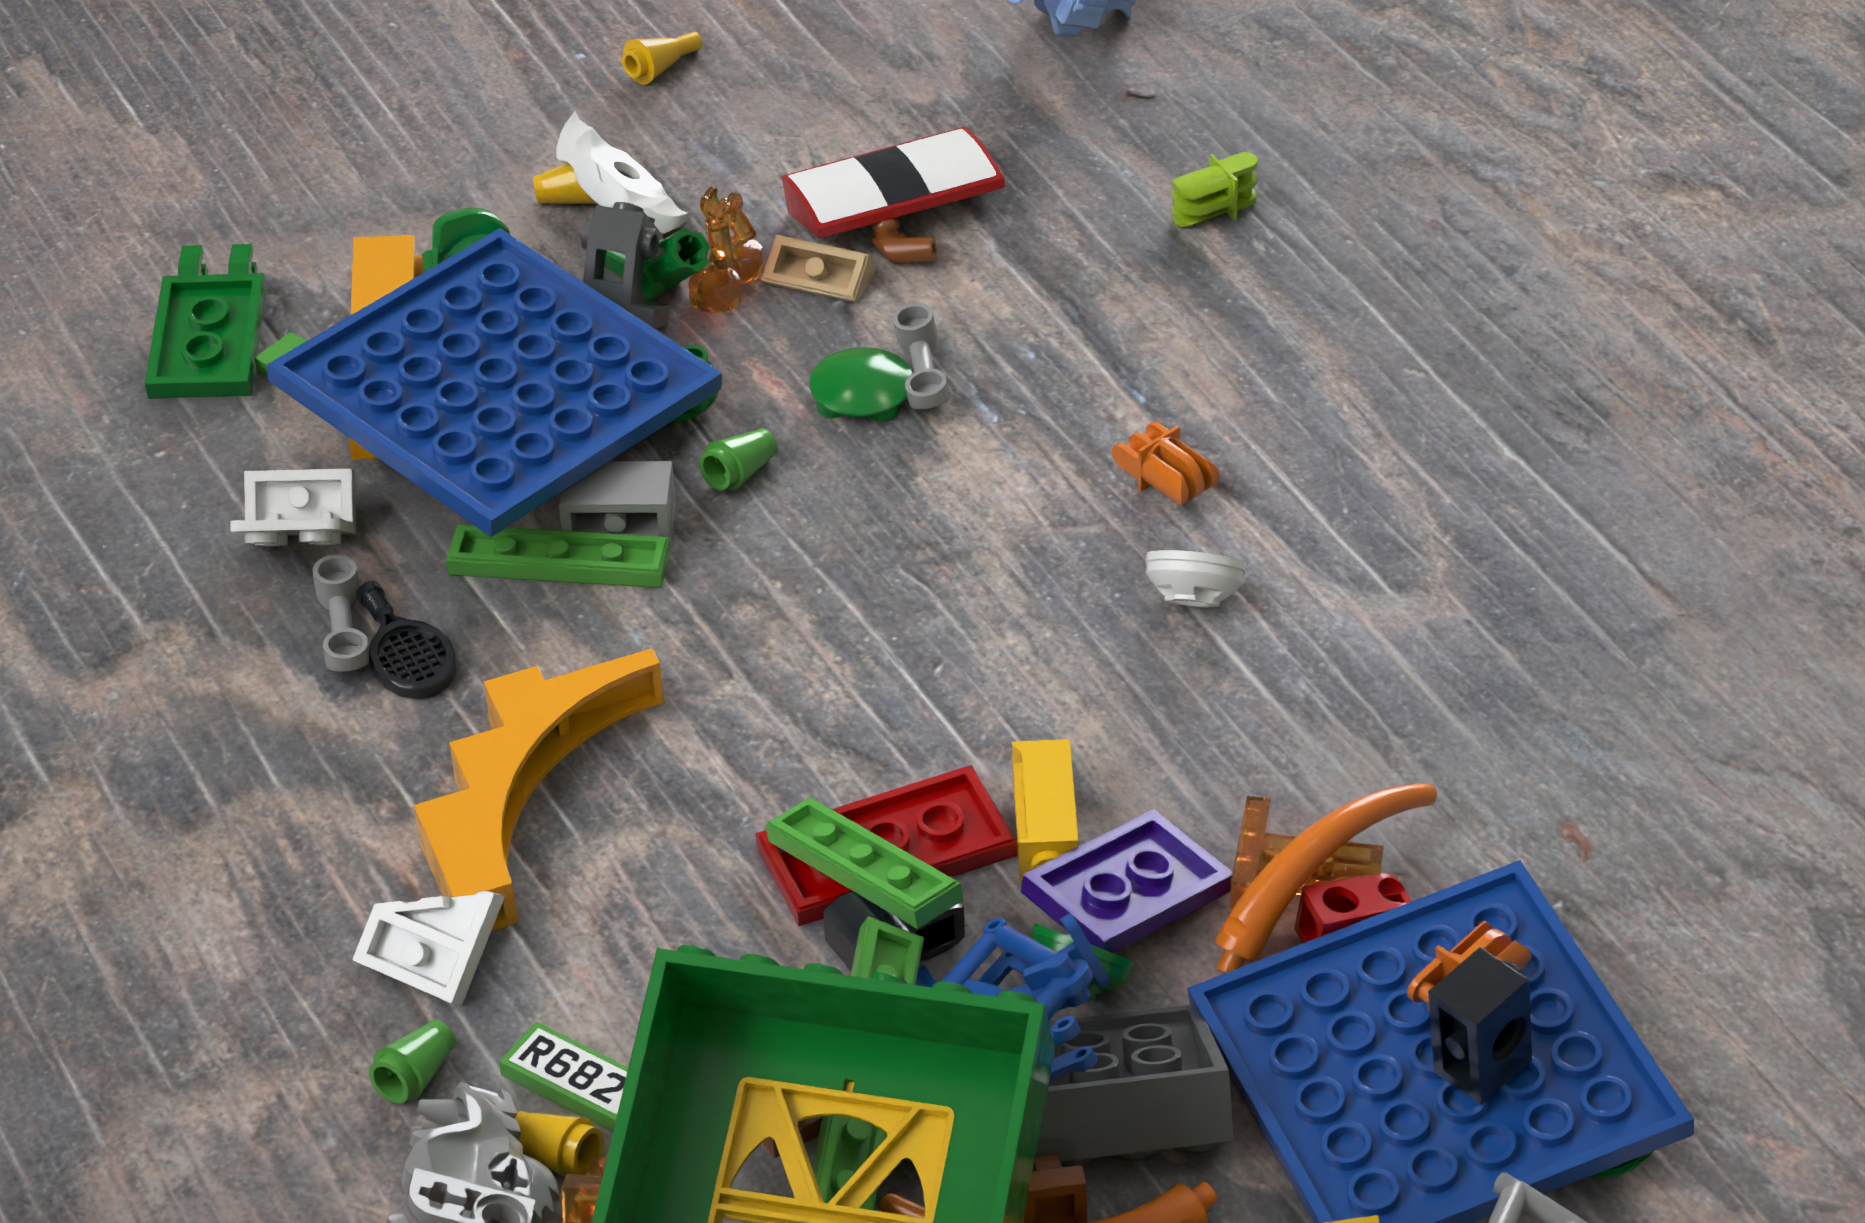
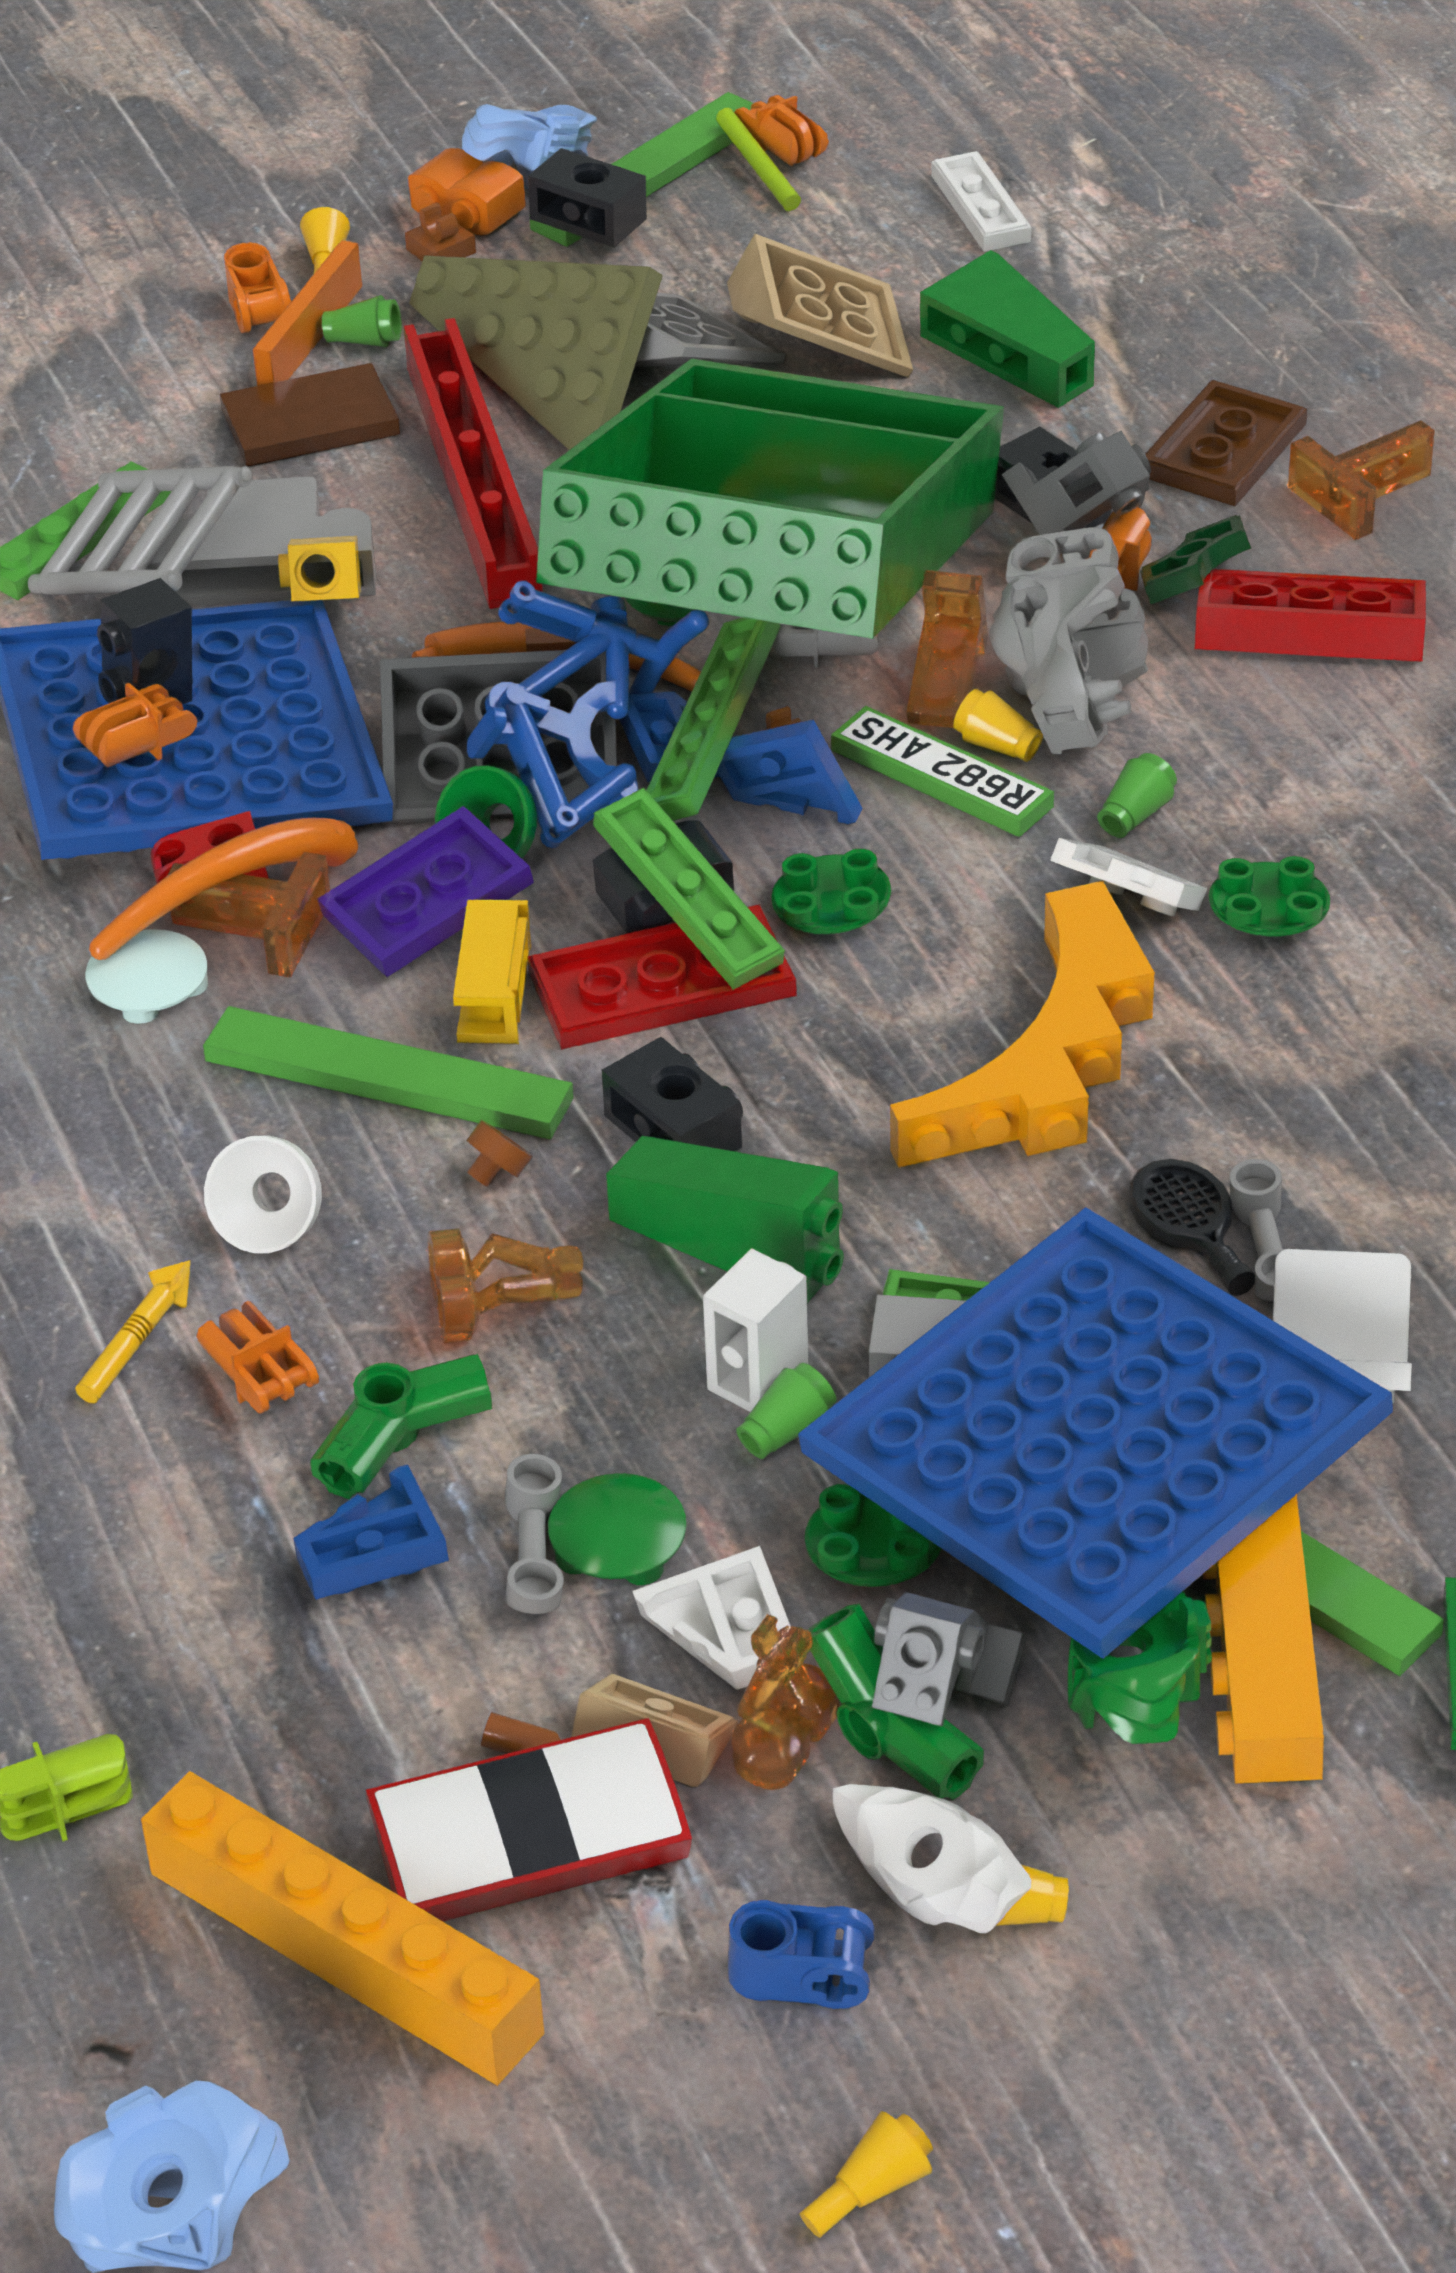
camera: 175 degrees left, 0 degrees up
(291, 952) = (1269, 896): none -> green dish
(713, 141) = (799, 1953): none -> blue piece
(728, 921) = (830, 891): none -> green dish
(762, 468) = (754, 1327): none -> white brick
(771, 324) = (716, 1612): none -> white wing
(793, 579) = (730, 1201): none -> green slope
(857, 688) = (670, 1098): none -> black brick
(1004, 641) = (496, 1153): none -> dark orange tile
(1012, 521) = (453, 1275): none -> clear orange piece
(1015, 127) = (344, 1927): none -> light orange brick
(1041, 354) = (372, 1539): none -> blue wing
(1047, 434) = (388, 1415): none -> green piece
(1127, 728) = (389, 1072): none -> bright green tile
(1260, 519) = (168, 1288): none -> yellow piece
(1396, 832) = (149, 974): none -> light aqua dish

